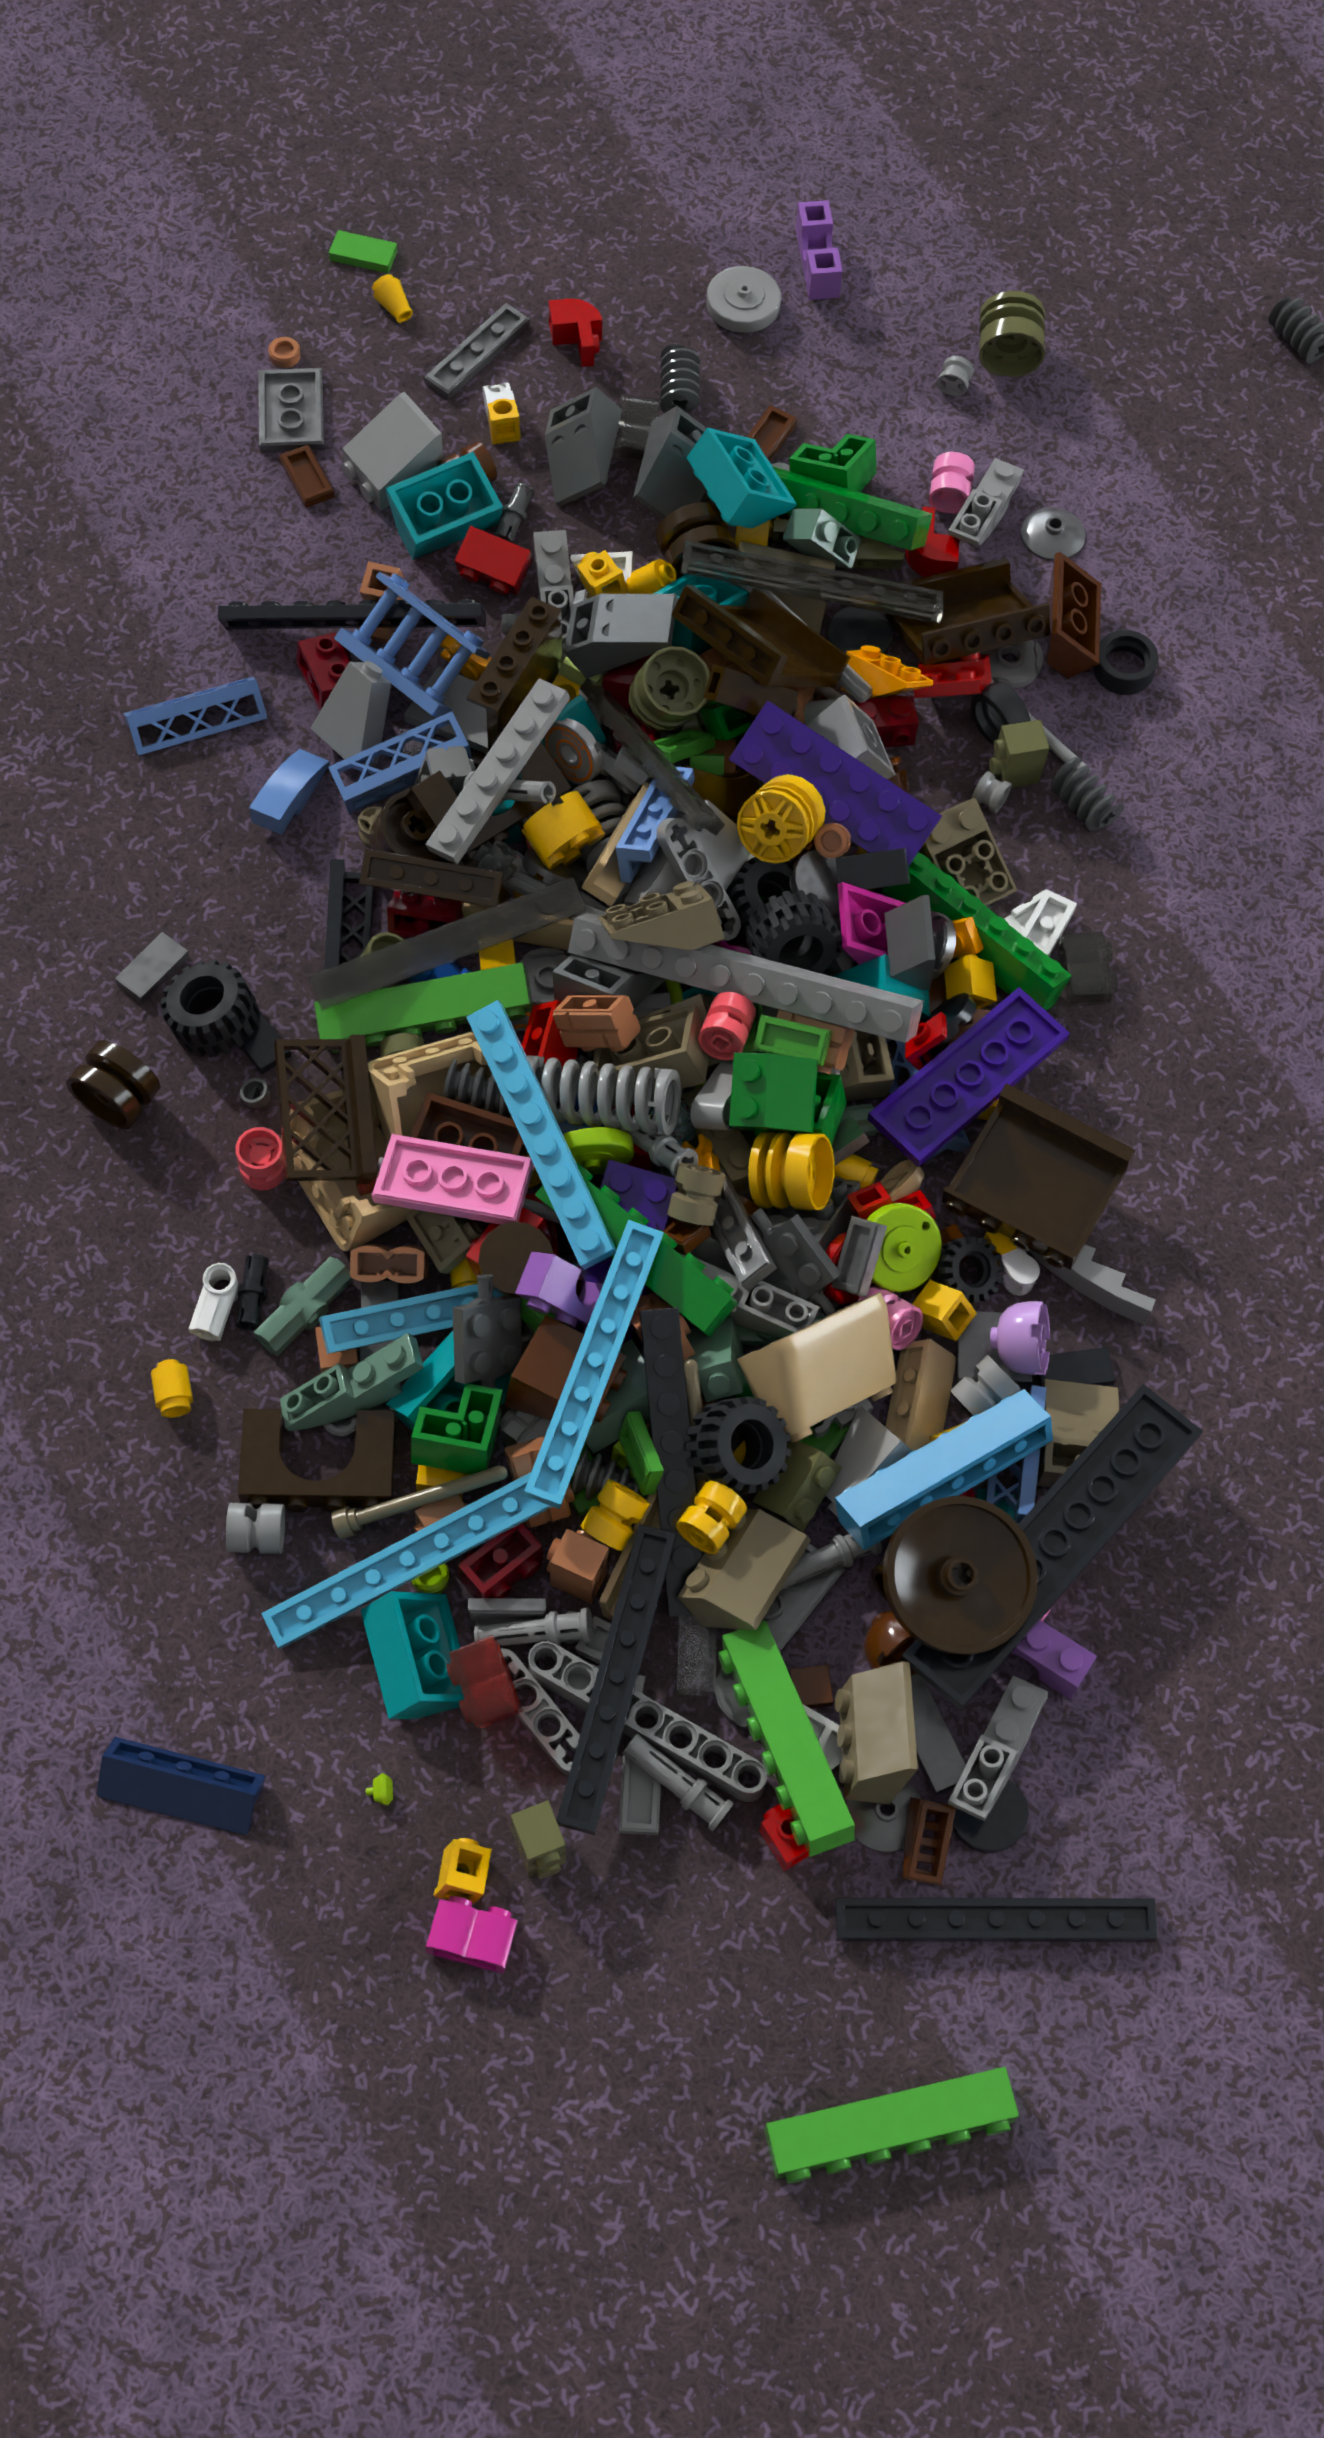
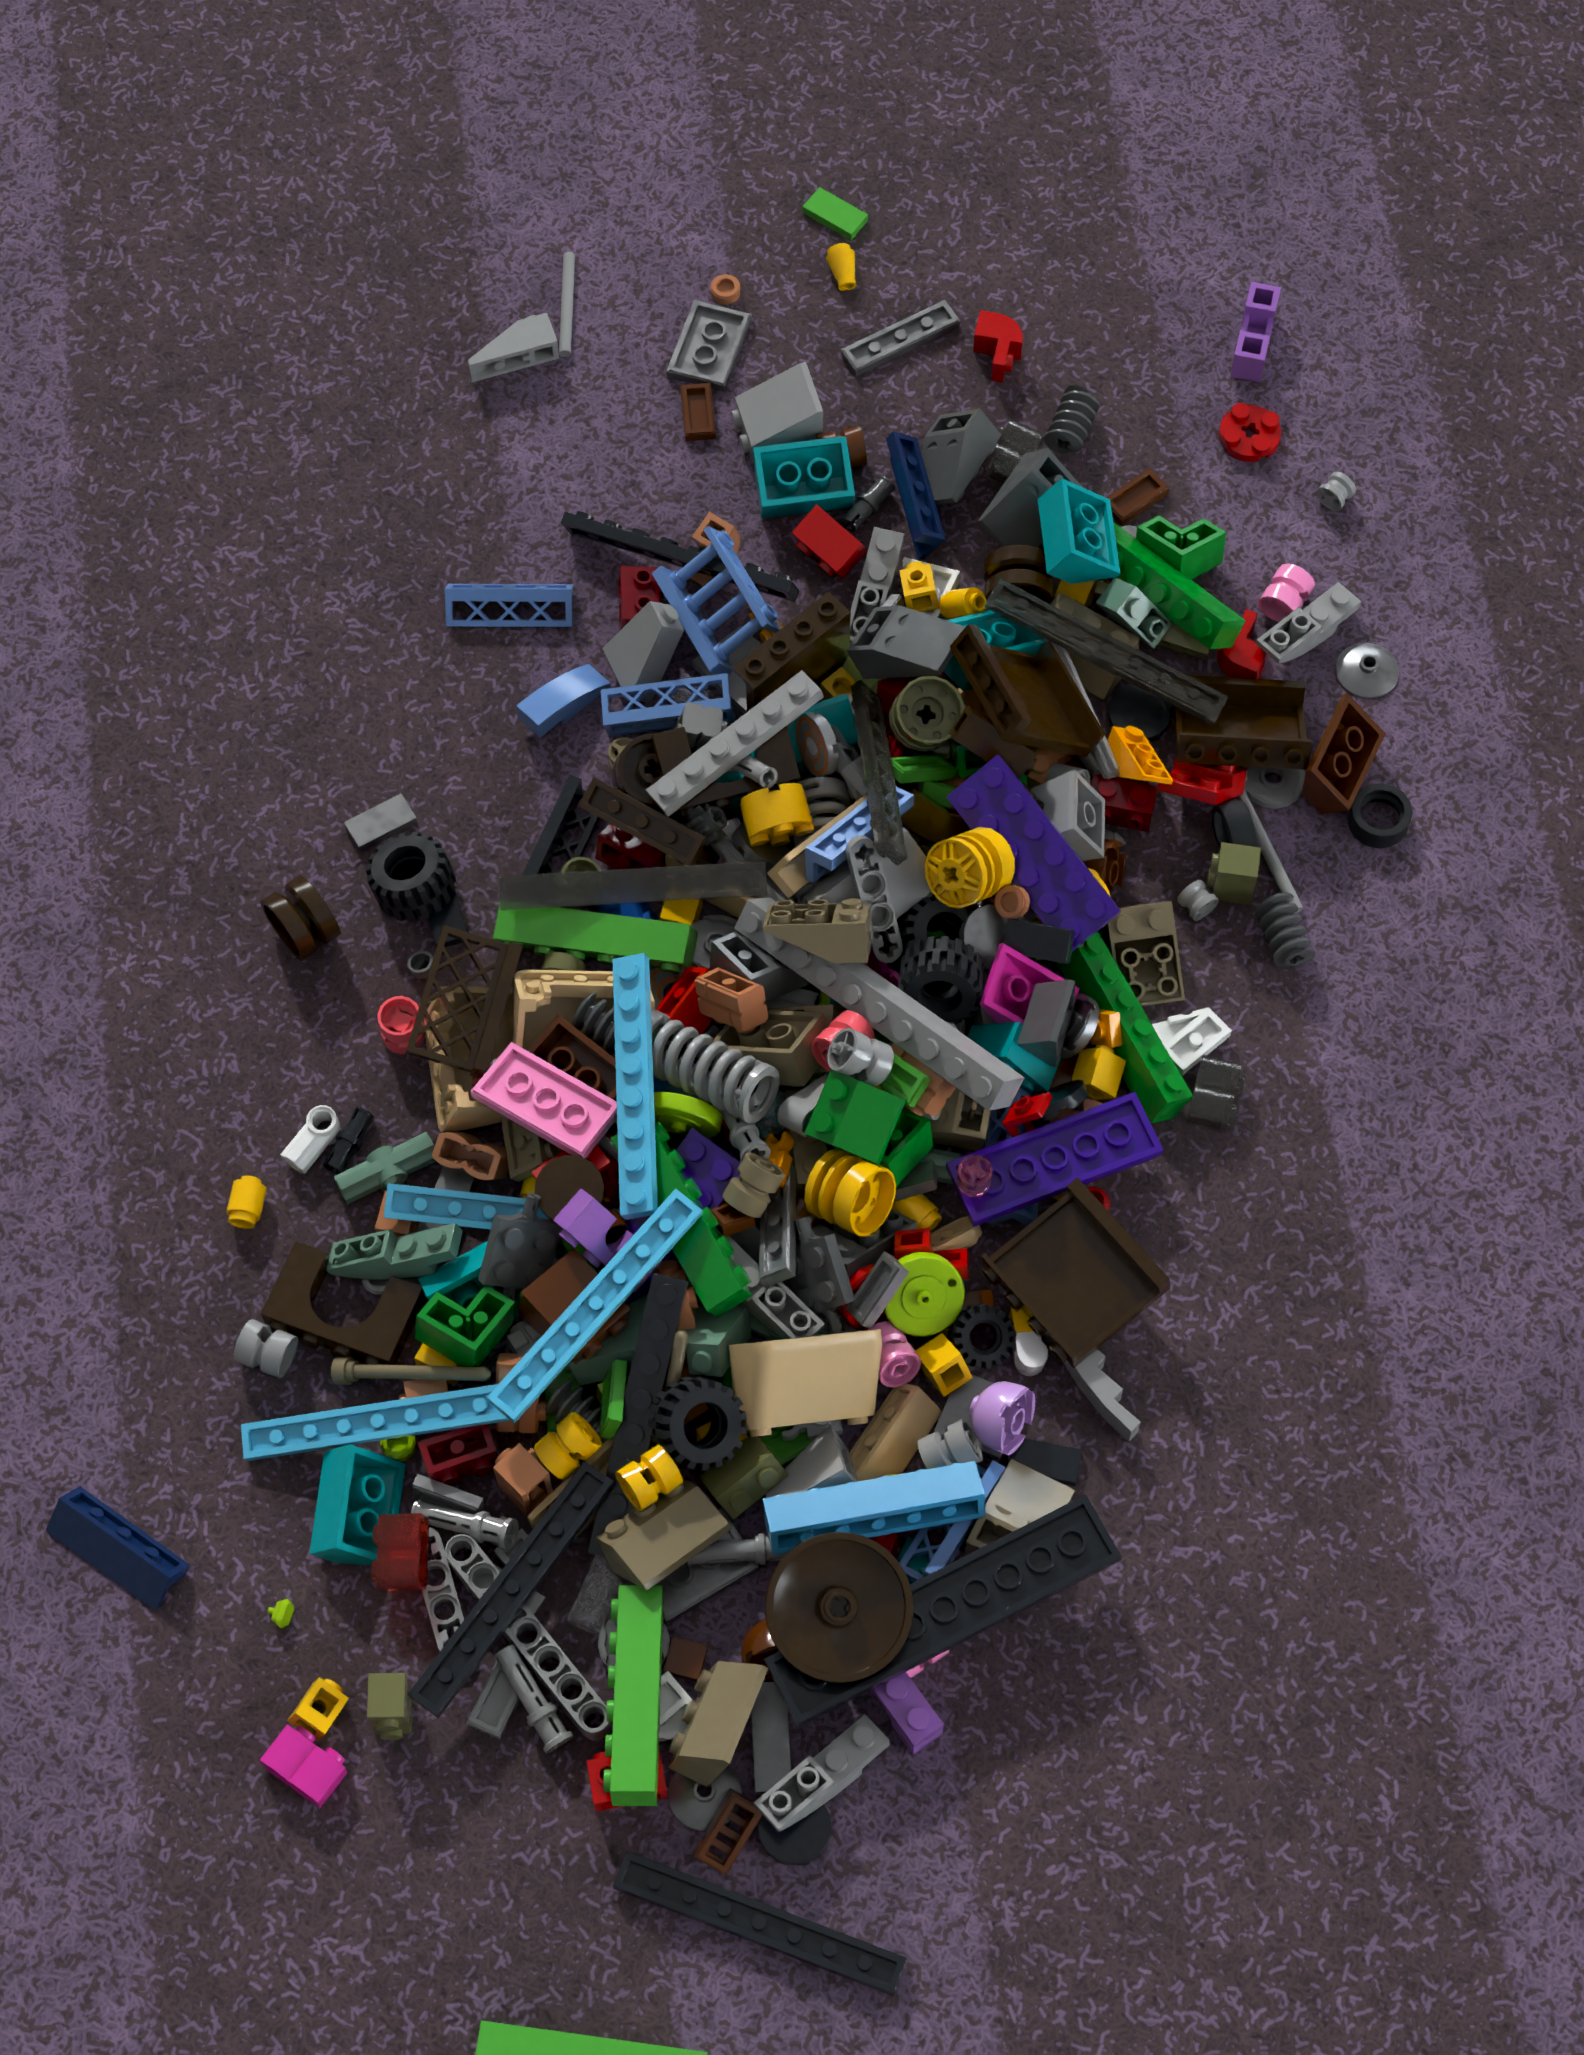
camera: 25 degrees right, 0 degrees up
(101, 462) = (518, 347): none -> light grey slope
(130, 410) = (567, 304): none -> light grey bar
(501, 413) = (895, 404): yellow leg -> none
(558, 492) = (915, 493): none -> dark blue panel
(743, 299) = (1166, 359): light grey wheel -> none
(758, 1030) = (859, 1056): none -> light grey wheel
(853, 331) = (1252, 417): none -> red plate
(909, 1108) = (975, 1167): none -> clear pink wheel
(1012, 333) = (1404, 466): olive wheel -> none

